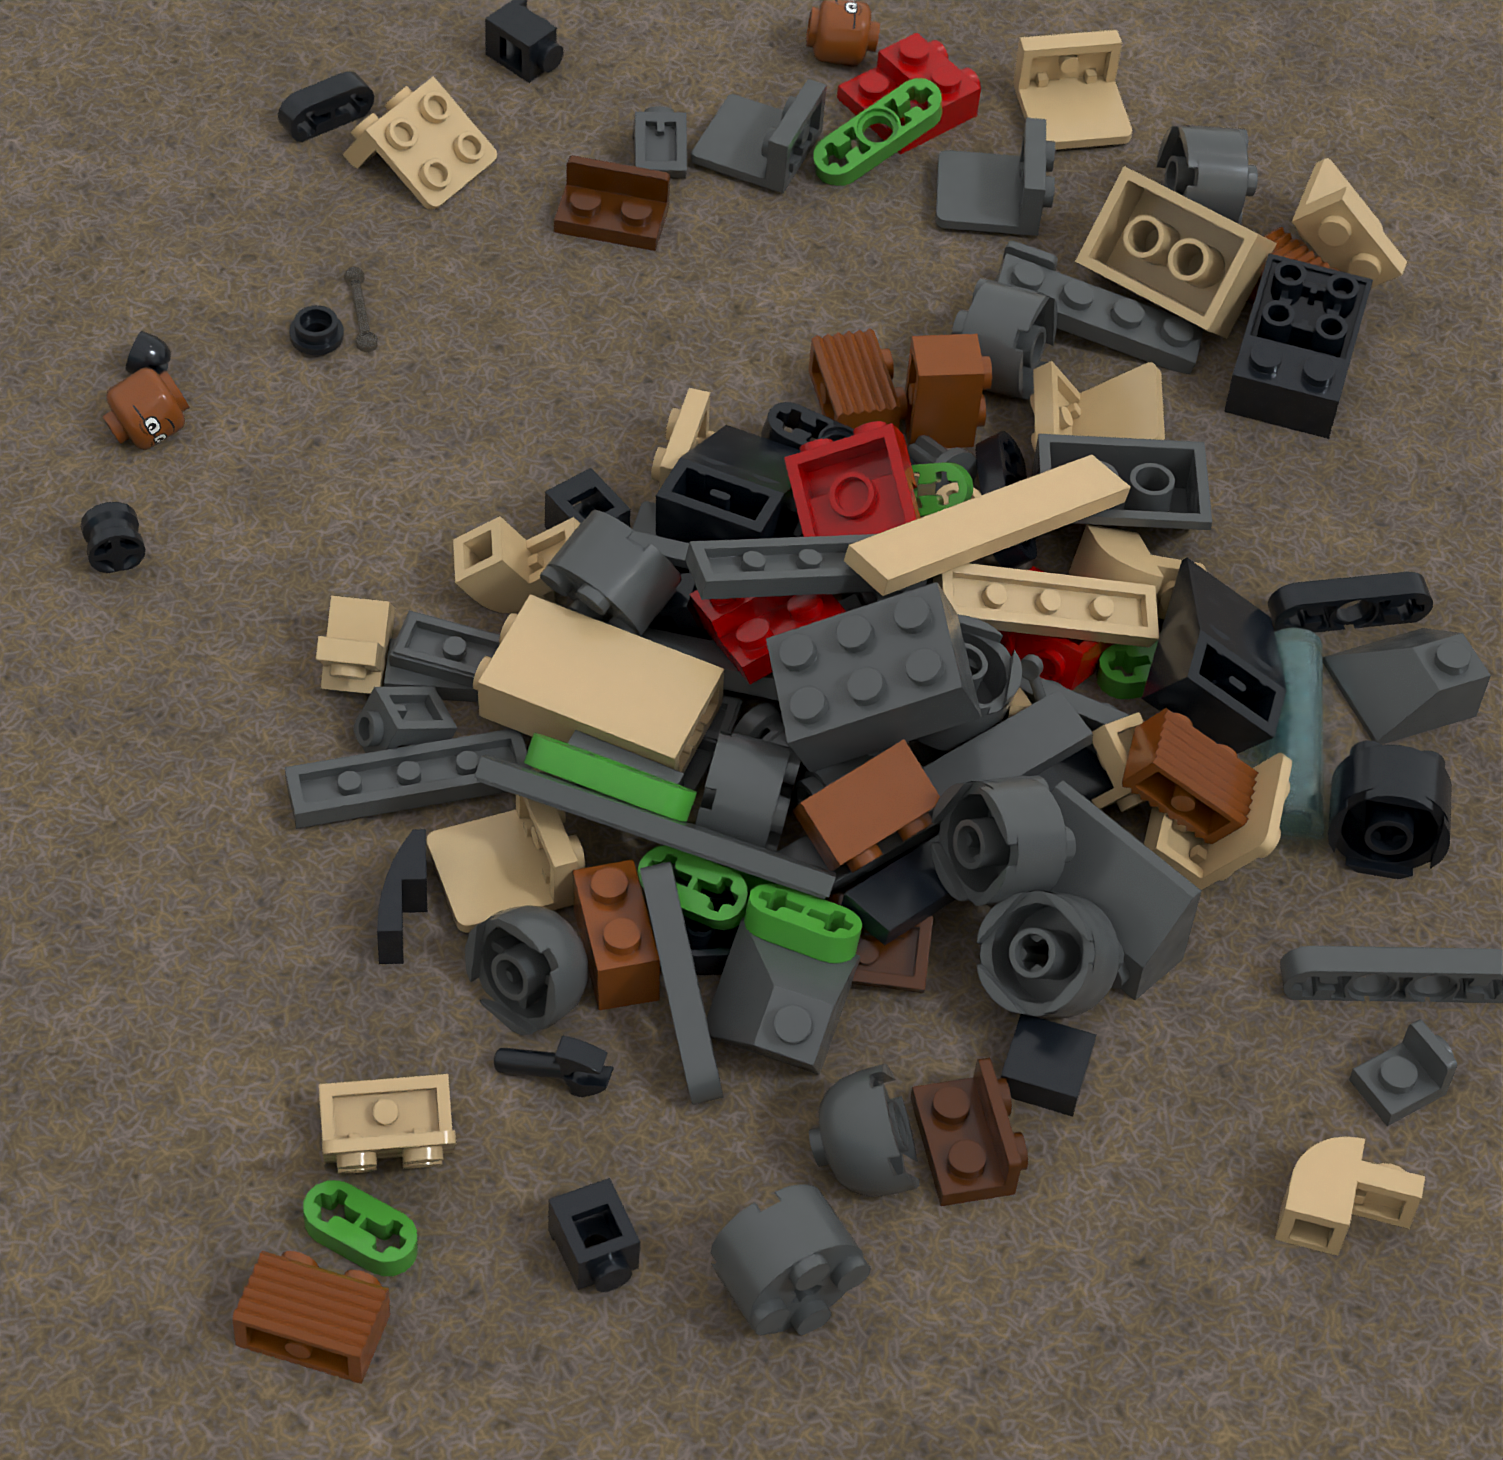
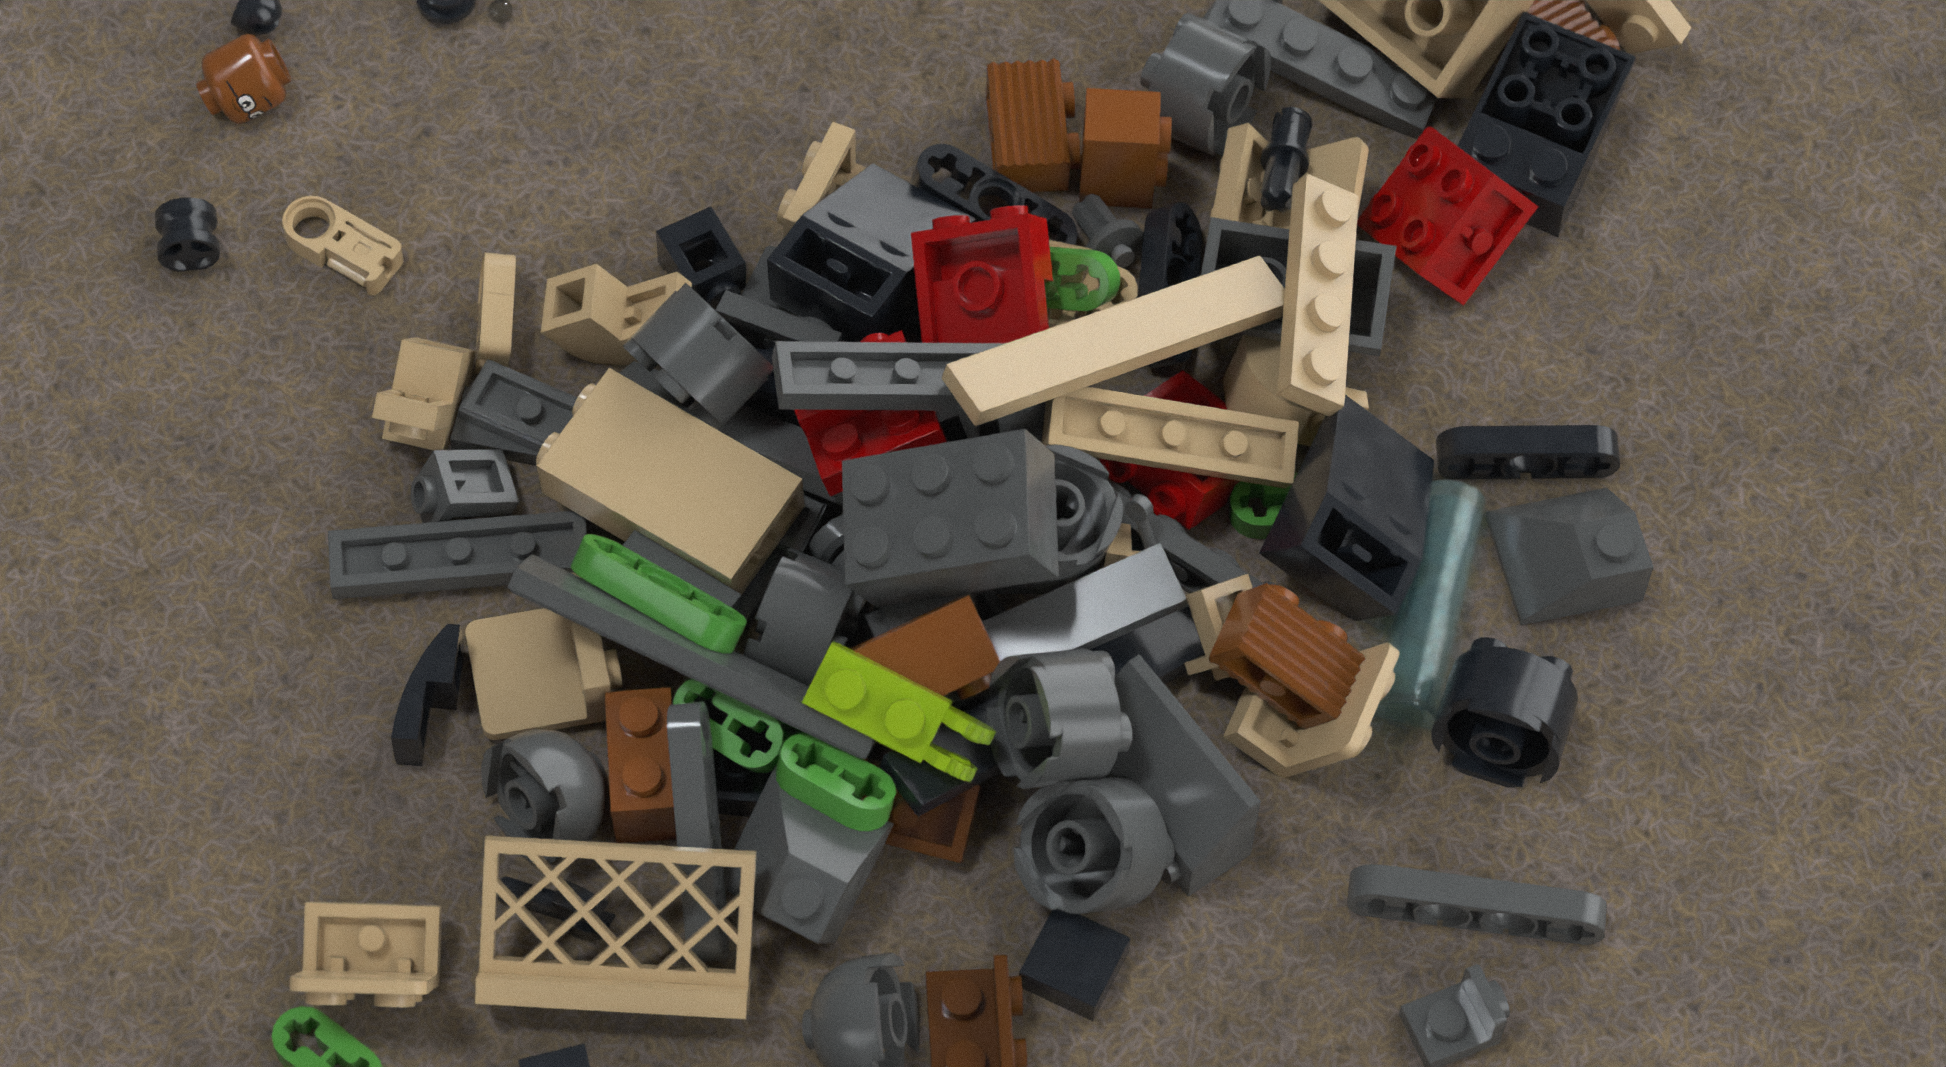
camera: 10 degrees right, 10 degrees up
(261, 536) = (347, 245): none -> tan piece
(407, 571) = (495, 309): none -> tan piece
(631, 1126) = (609, 985): none -> tan fence
(848, 848) = (892, 709): none -> lime hinge
(1088, 388) = (1285, 158): none -> black axle
(1151, 481) = (1318, 295): none -> tan plate
(1242, 415) = (1446, 215): none -> red bracket

